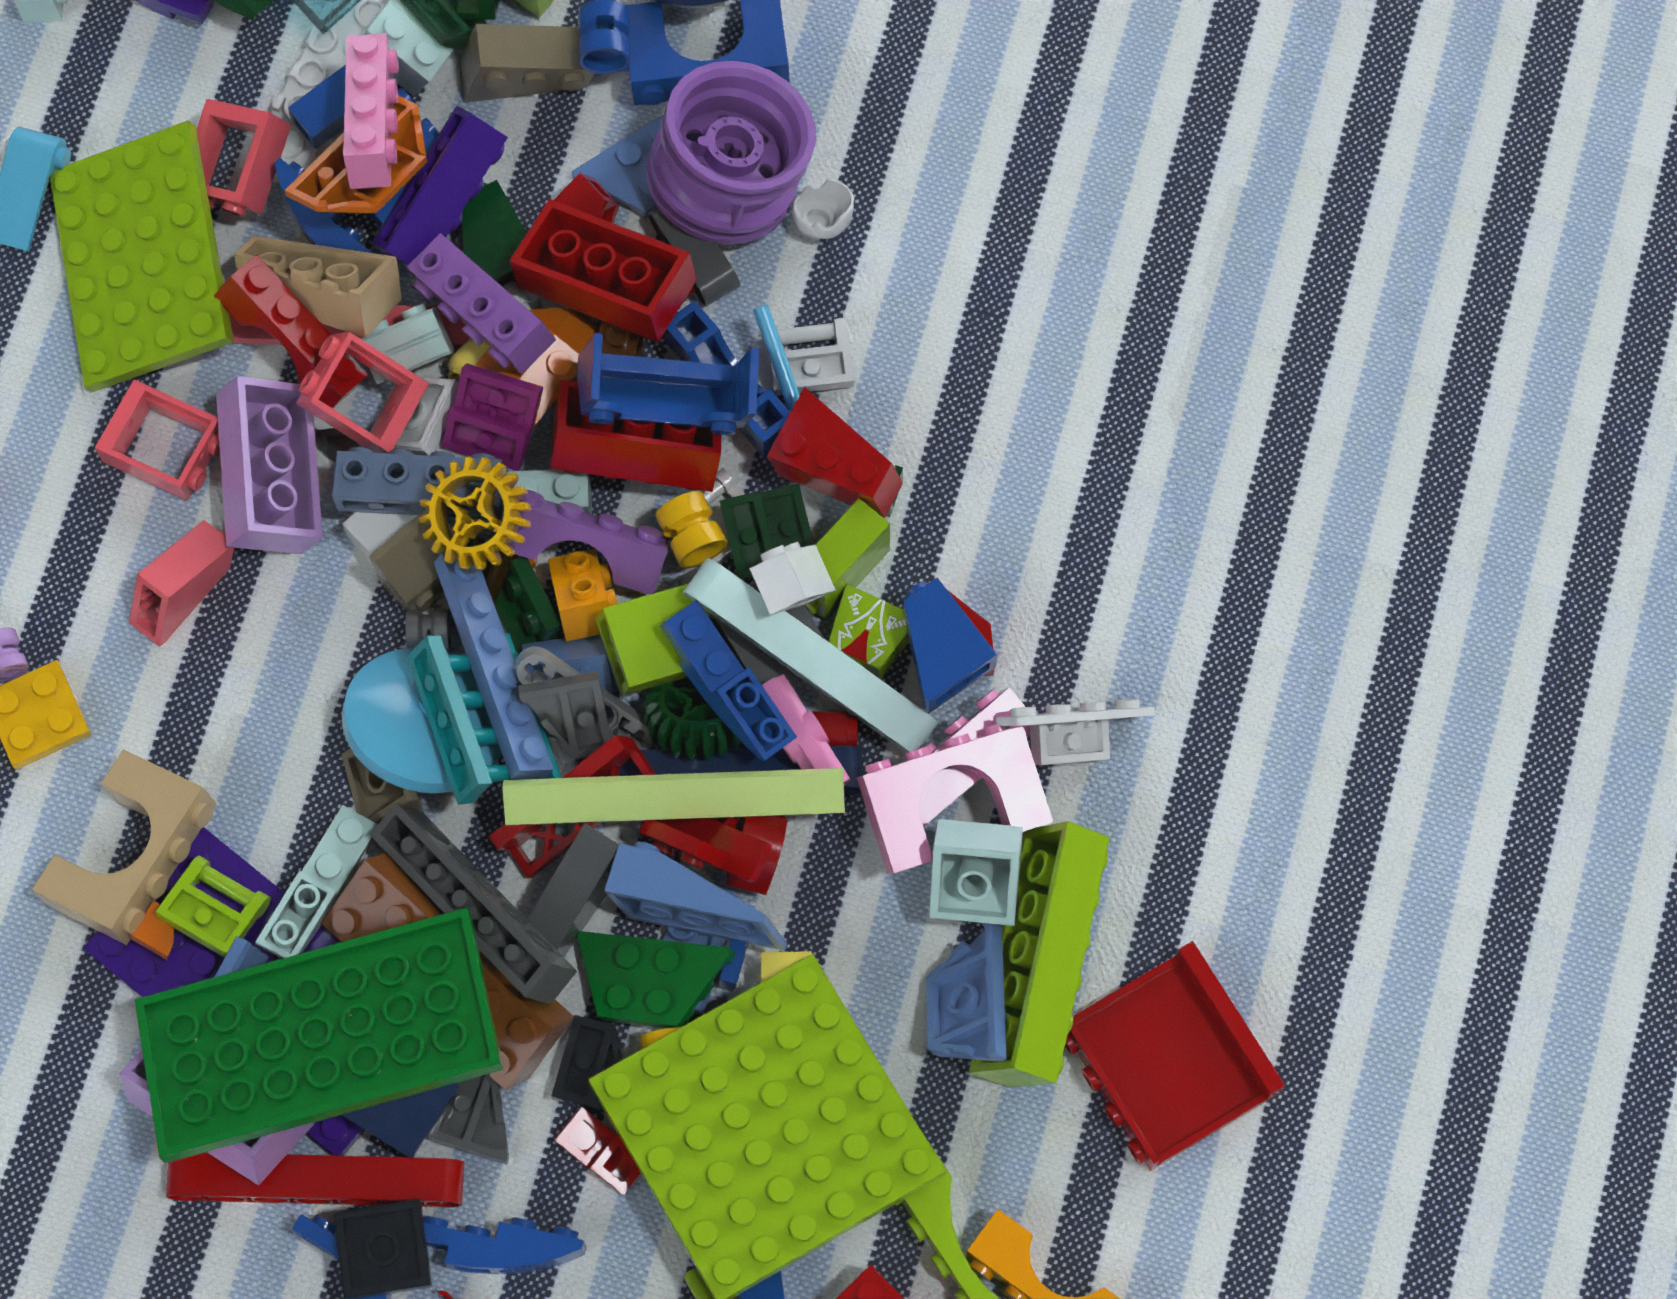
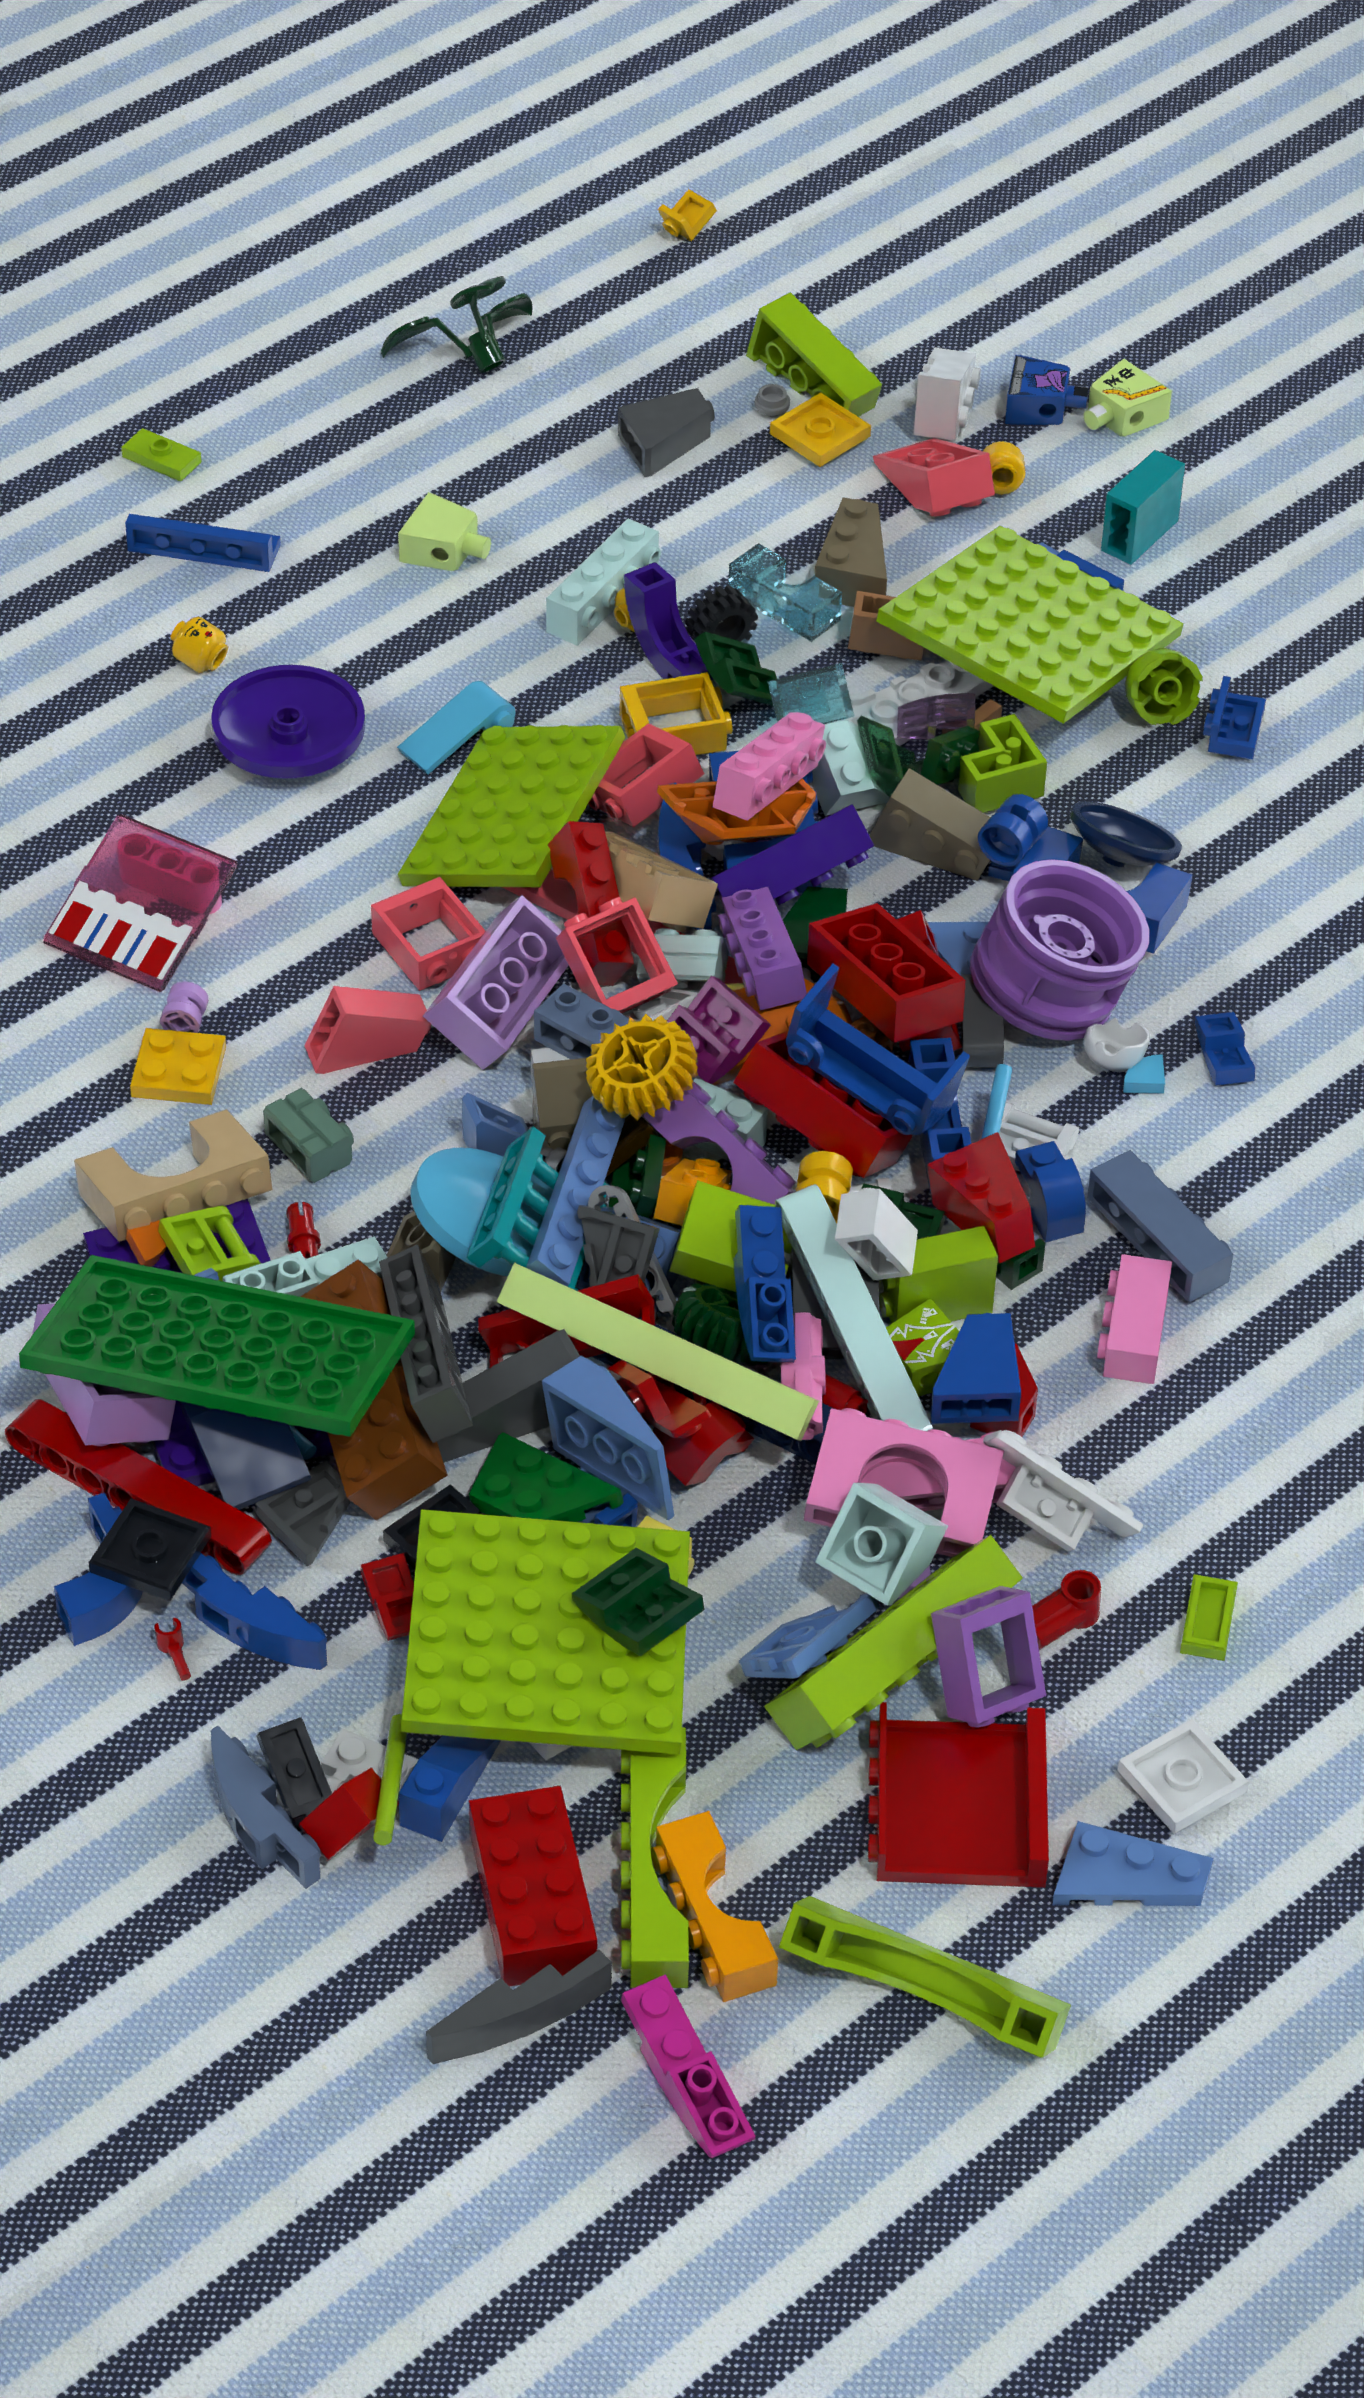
camera: 30 degrees right, 25 degrees down
(193, 39) = (679, 695): none -> yellow window
(206, 723) = (308, 1134): none -> sand green brick
(276, 835) = (302, 1231): none -> red pin
(363, 621) = (489, 1126): none -> medium blue slope
(828, 1062) = (638, 1601): none -> dark green slope
(864, 224) = (1146, 1076): none -> medium azure tile
(874, 402) = (1056, 1191): none -> blue brick
(908, 155) = (1224, 1048): none -> blue slope
(979, 385) = (1160, 1224): none -> sand blue brick
(1015, 493) = (1134, 1318): none -> bright pink brick
(1097, 927) = (957, 1657): none -> medium lavender window
(1137, 831) = (1063, 1609): none -> red piece
(1249, 755) = (1208, 1617): none -> lime tile
(1326, 927) = (1183, 1776): none -> white plate
(1334, 1238) = (983, 1997): none -> lime arch
(1335, 1039) = (1119, 1866): none -> medium blue wing

